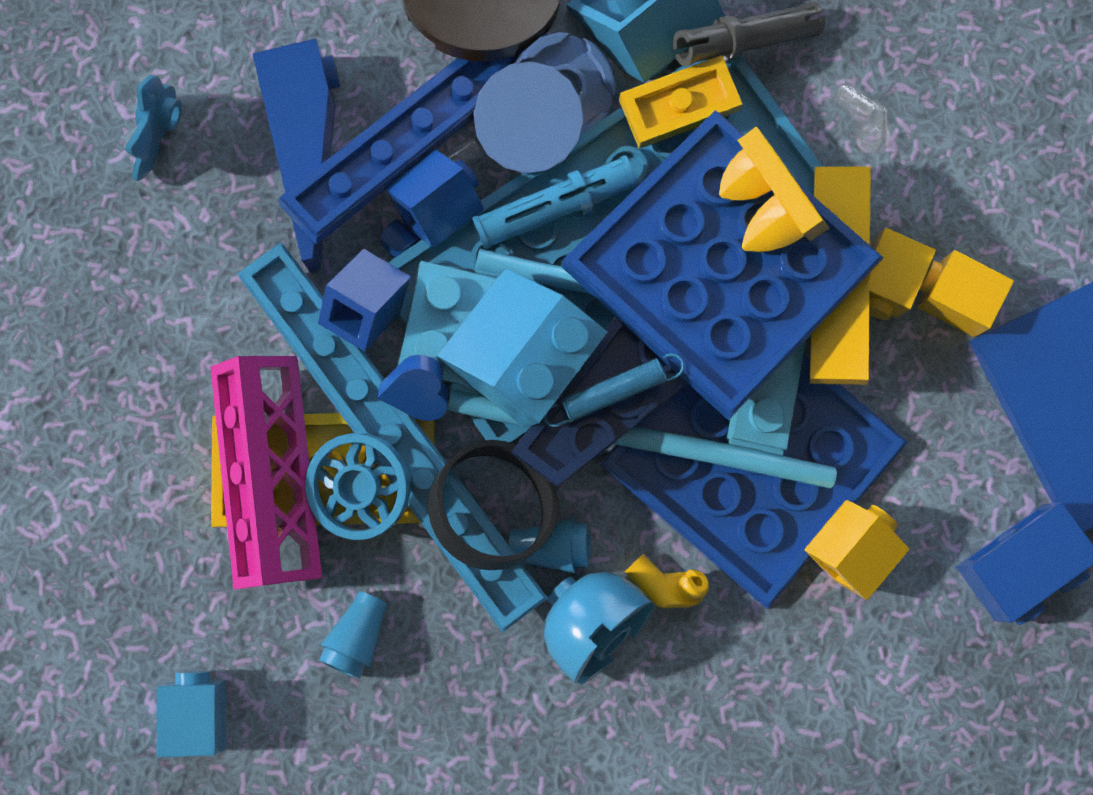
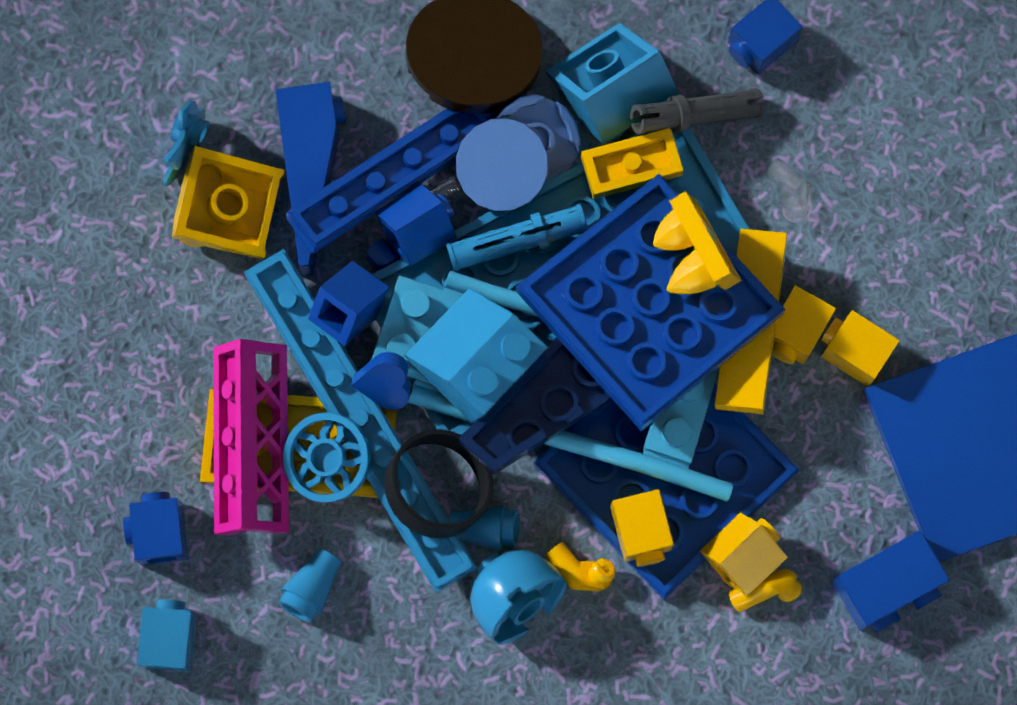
camera: 10 degrees right, 5 degrees down
(166, 588) = (156, 529): none -> blue brick
(210, 194) = (226, 203): none -> yellow slope
(615, 390) = (548, 396): dark azure piece -> none
(737, 532) = (642, 528): none -> yellow brick
(903, 580) = (778, 582): none -> yellow arm

